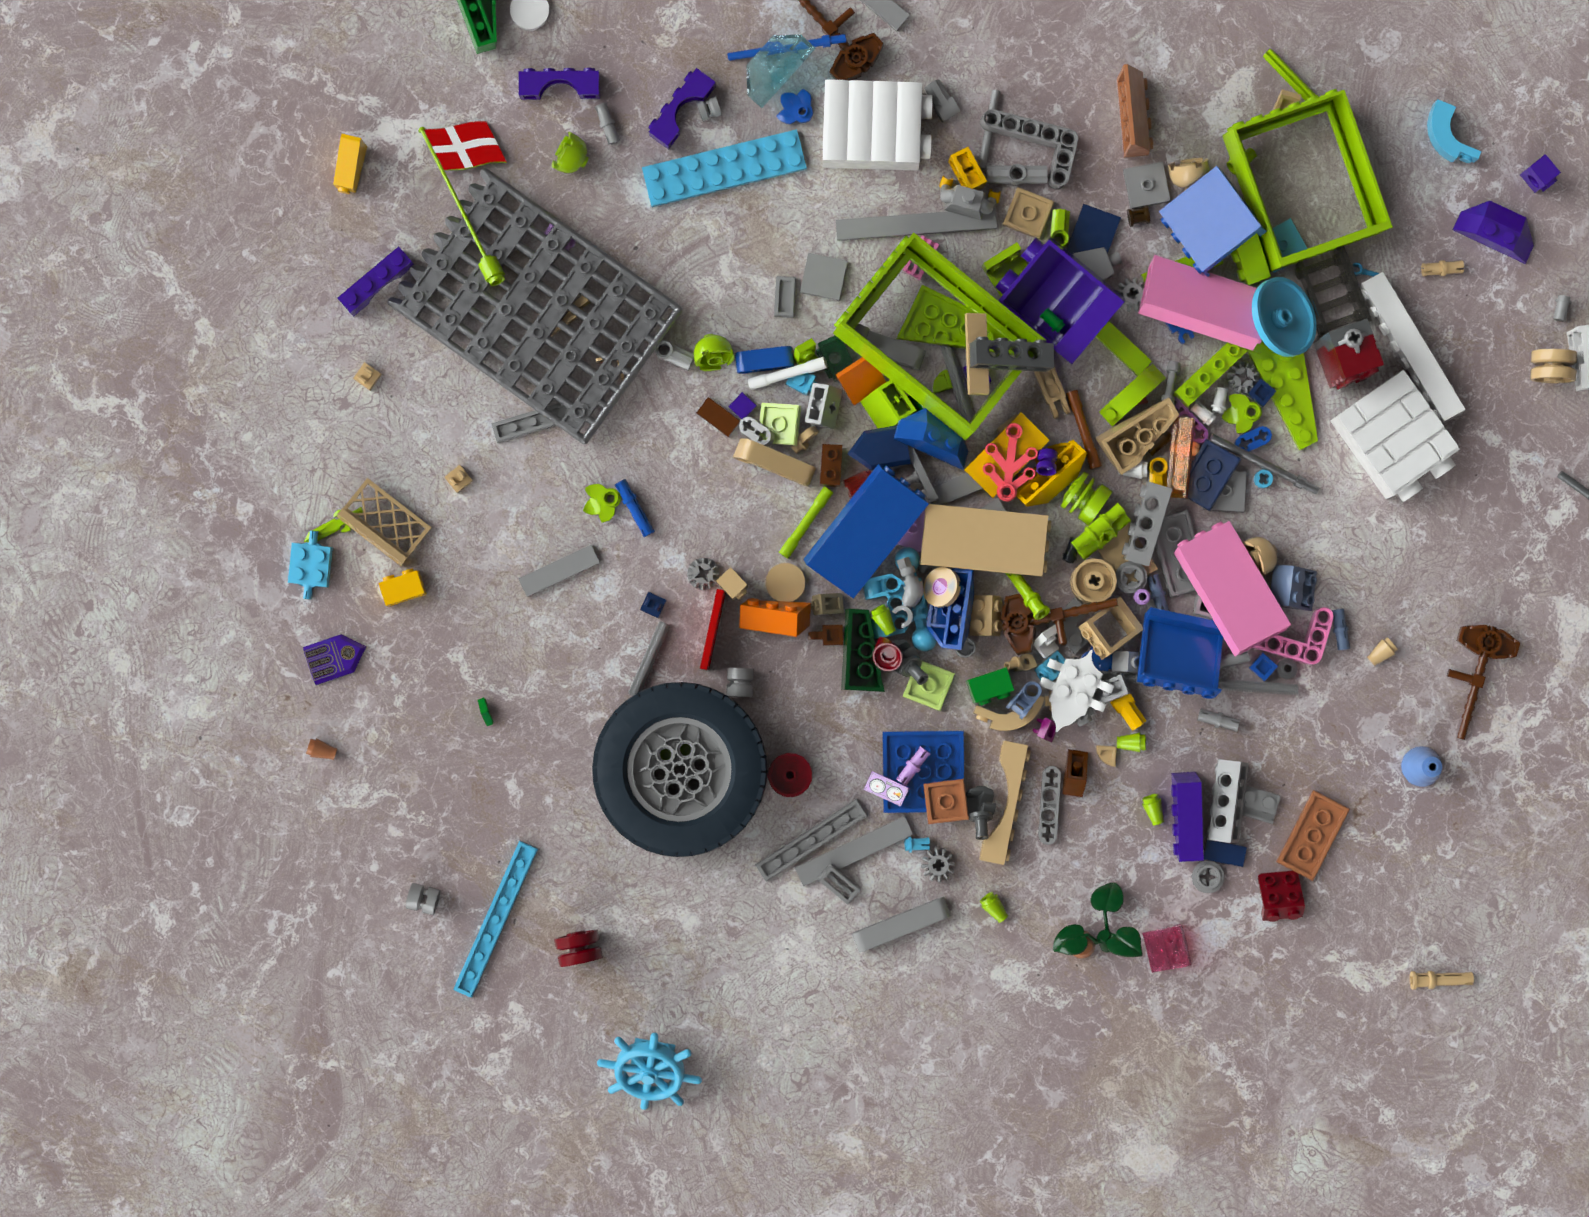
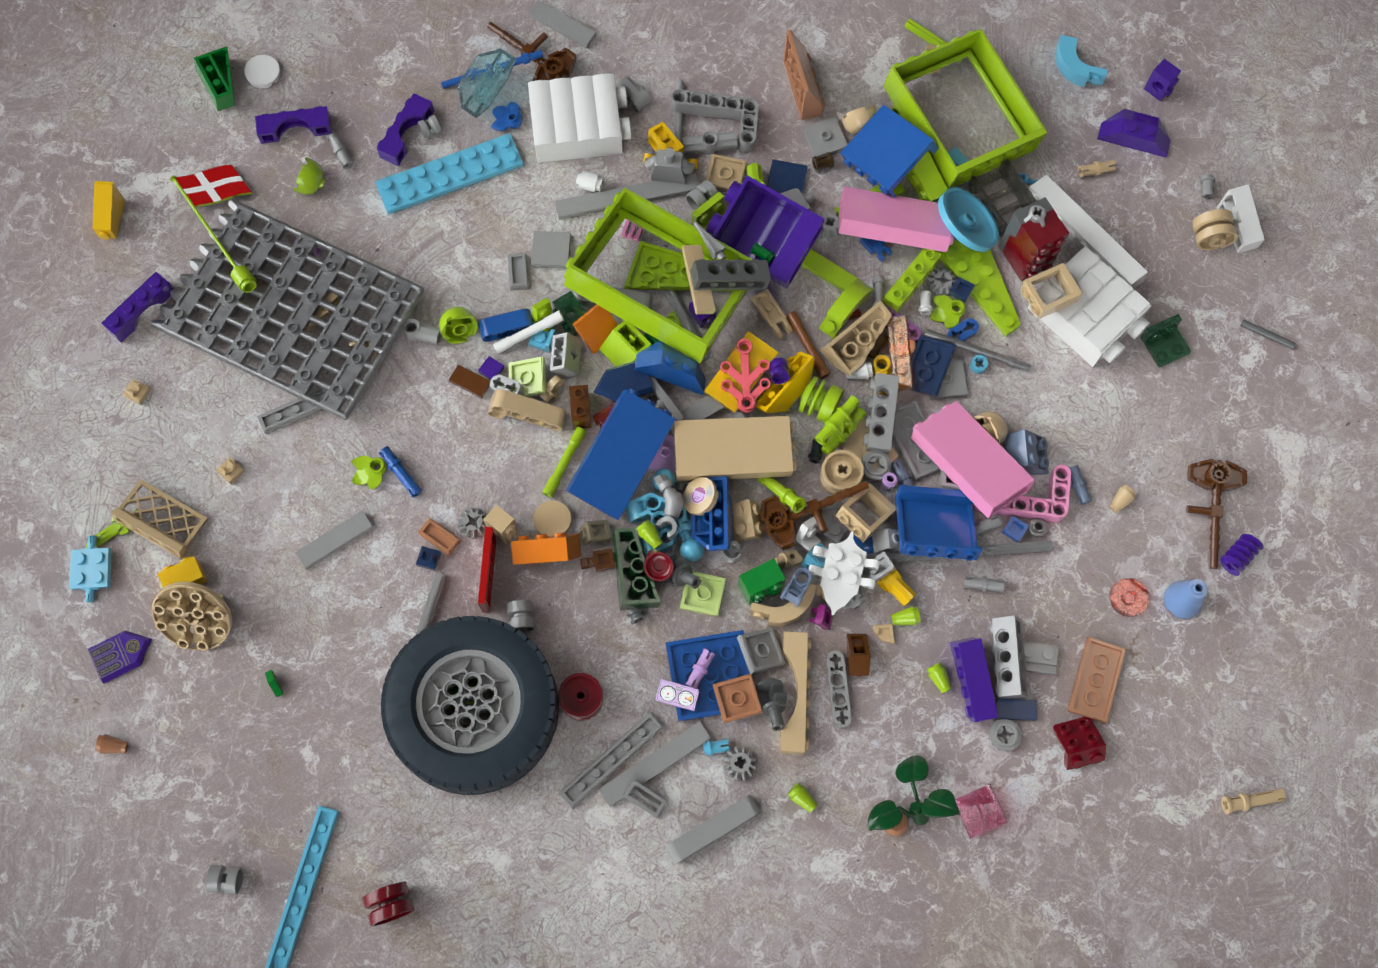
camera: 15 degrees left, 15 degrees down
(413, 633) = (192, 615): none -> tan bracket
(666, 583) = (439, 537): none -> nougat tile
(857, 698) = (636, 615): none -> dark grey bush
(877, 203) = (589, 181): none -> white brick
(978, 754) = (761, 650): none -> light grey plate
(996, 241) = (700, 195): none -> light grey wheel
(1000, 319) = (714, 247): none -> light grey piece
(1203, 413) = (913, 315): white pin -> none
(1366, 755) = (1129, 597): none -> clear red tile
(1372, 412) = (1066, 282): none -> tan window
(1470, 486) = (1165, 341): none -> clear green bracket
(1490, 729) = (1241, 553): none -> dark purple piece

